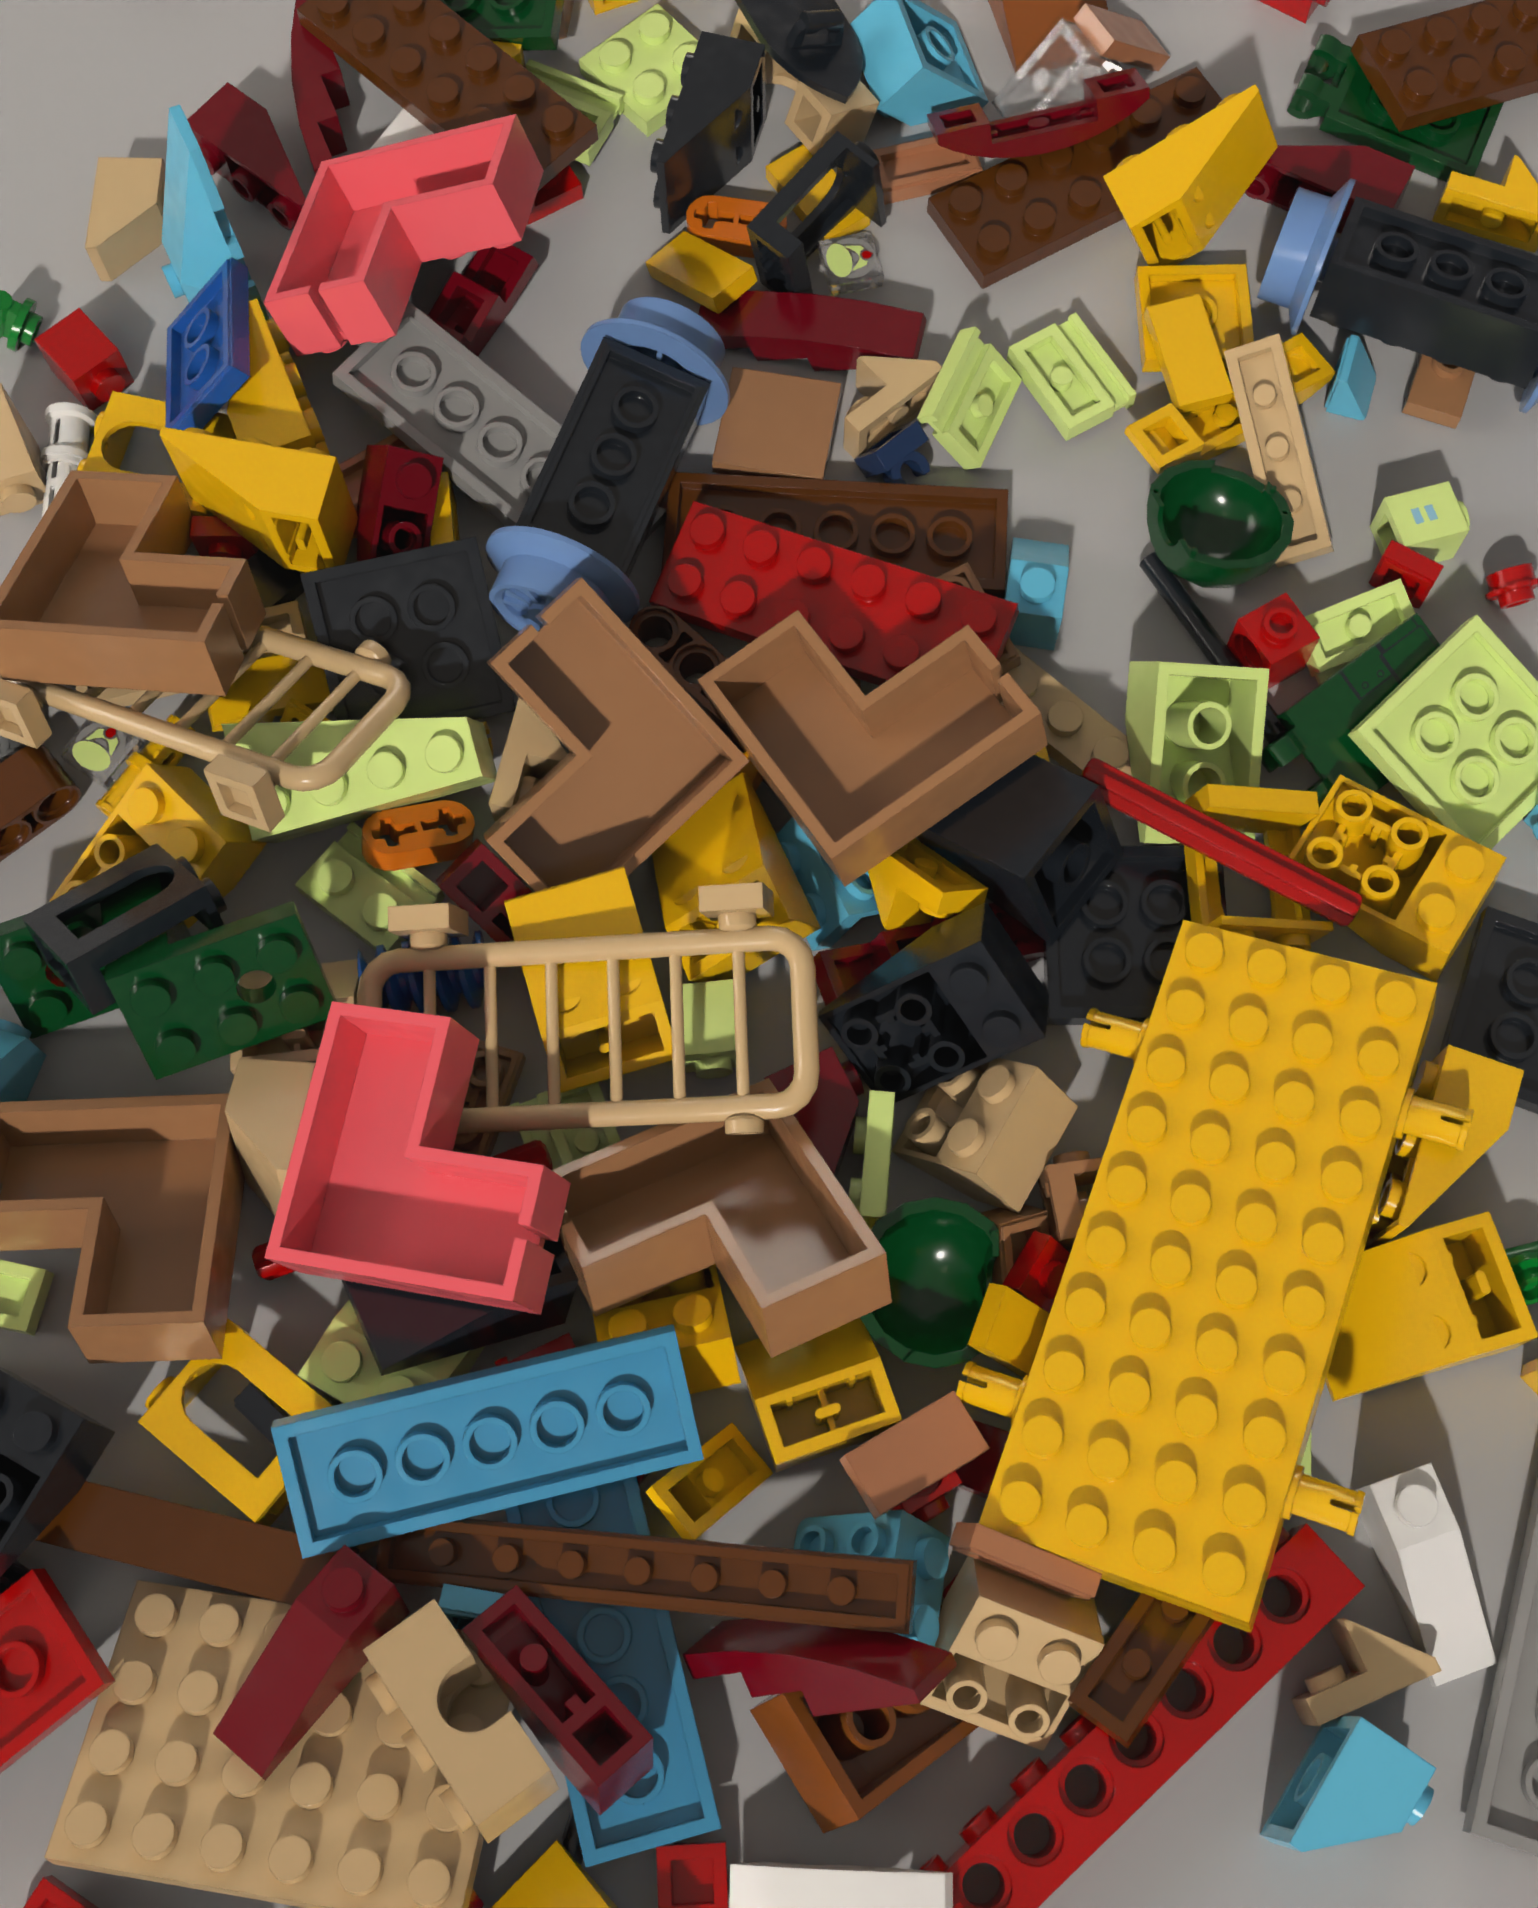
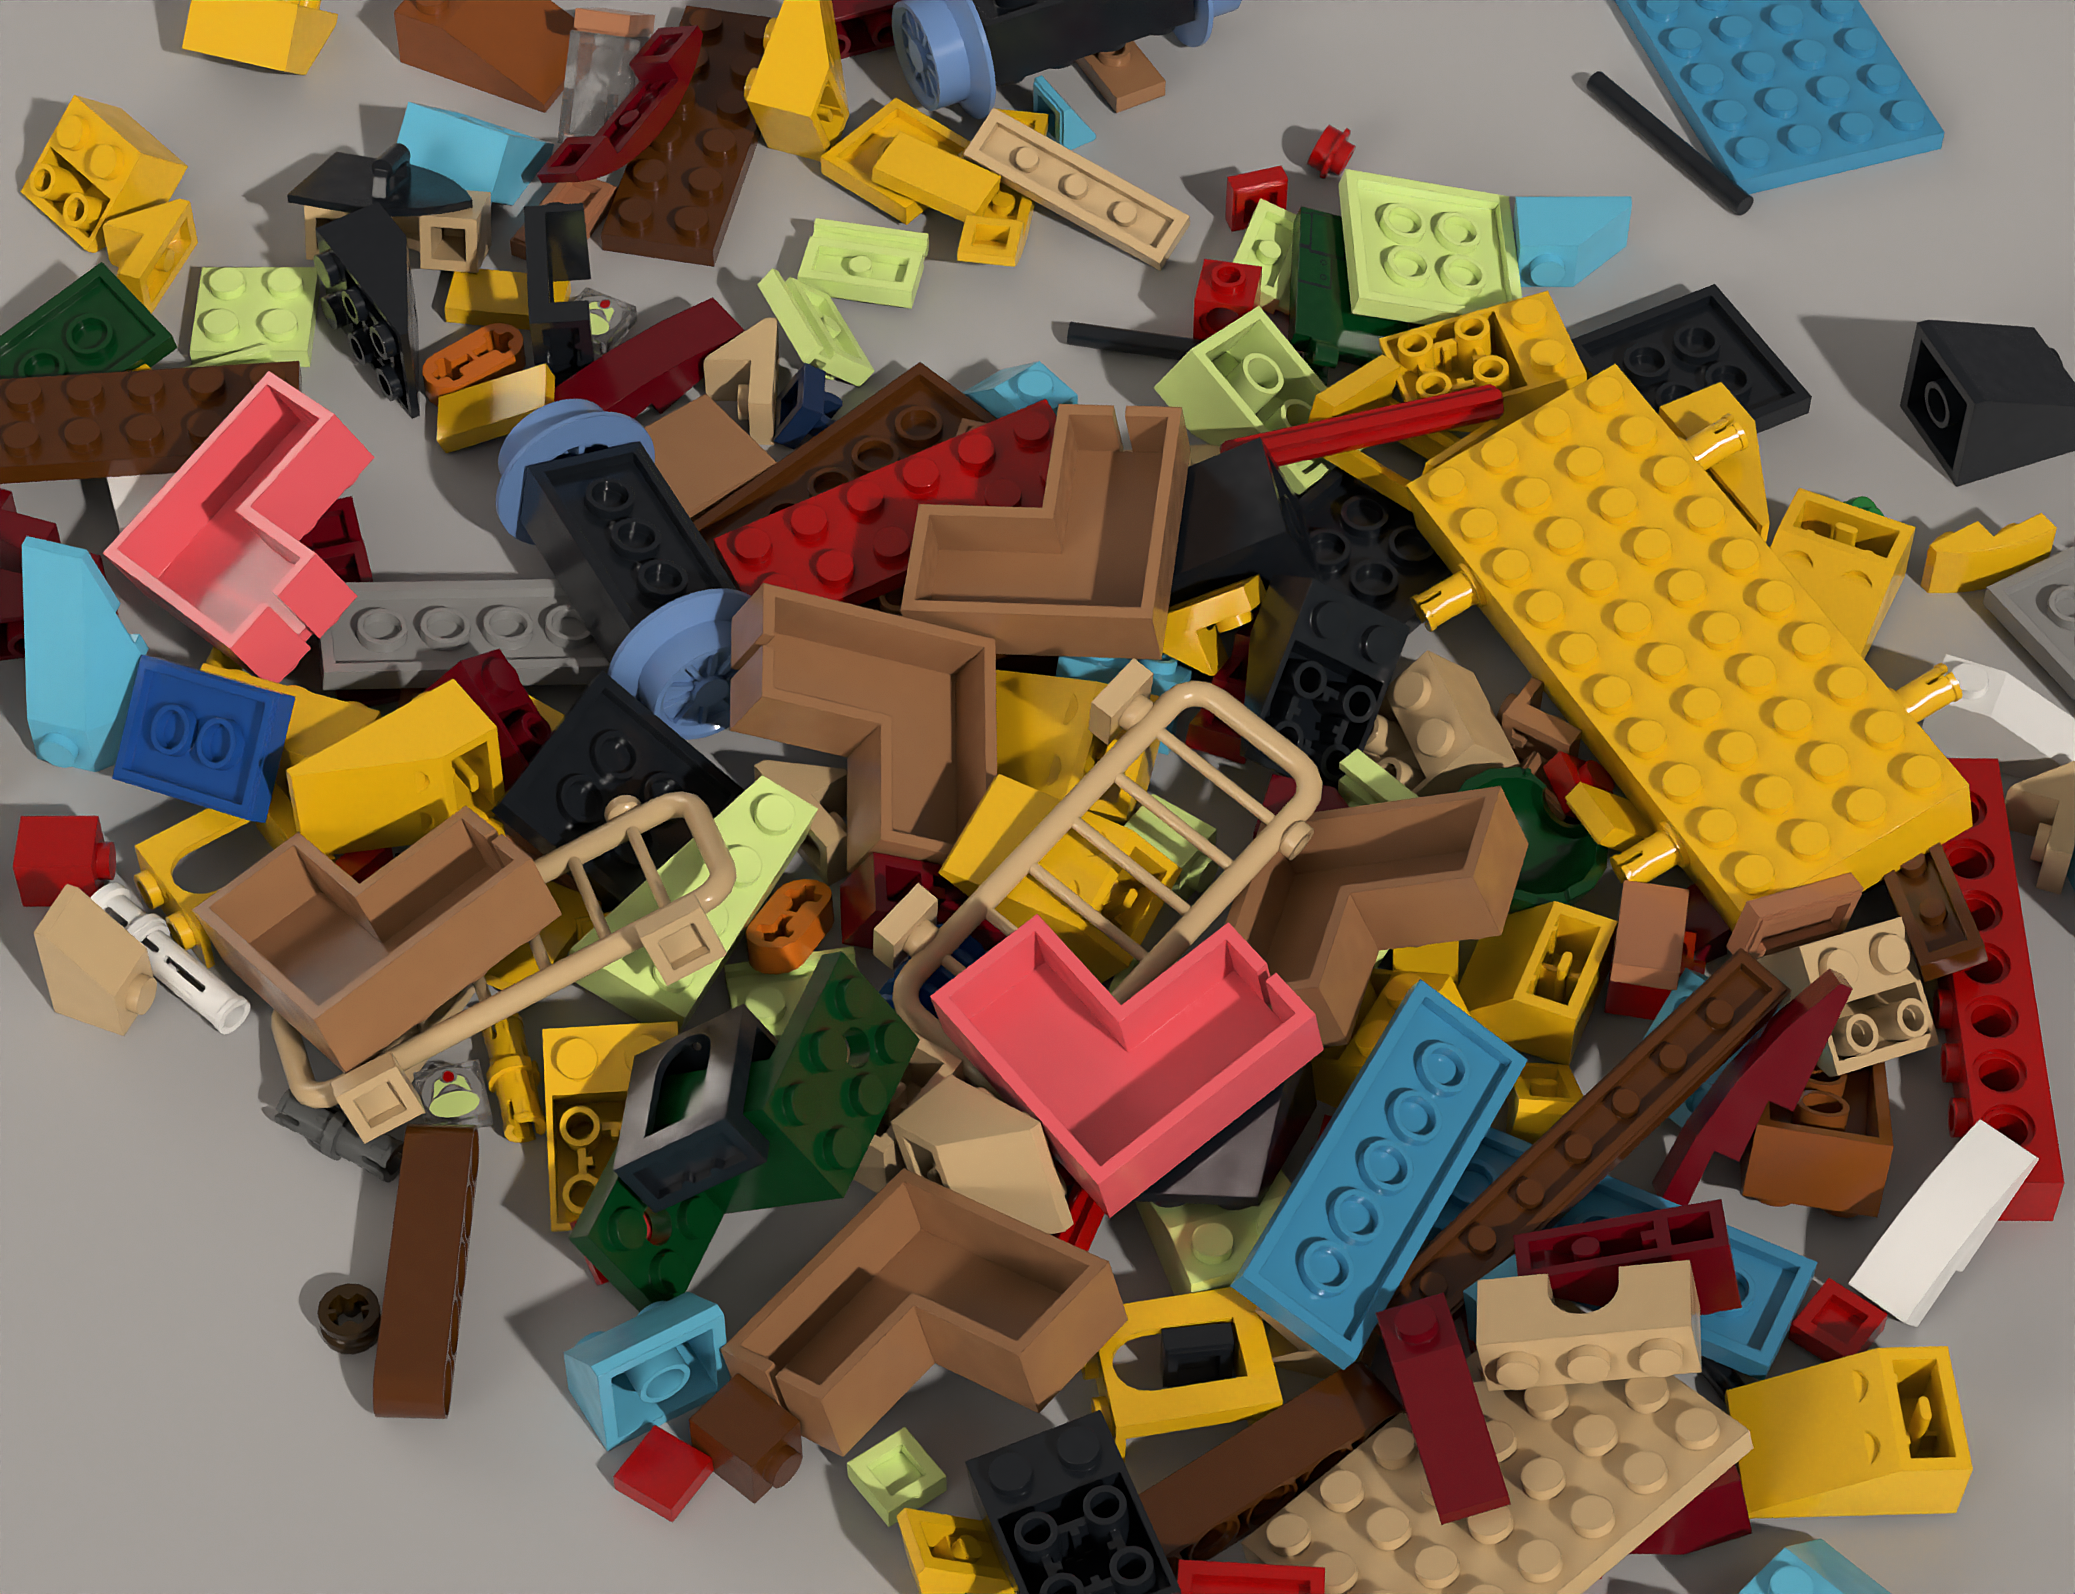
camera: 50 degrees left, 20 degrees down
(1216, 524) = (1100, 263): dark green cylinder -> none
(1424, 521) = (1222, 152): yellowish green brick -> none

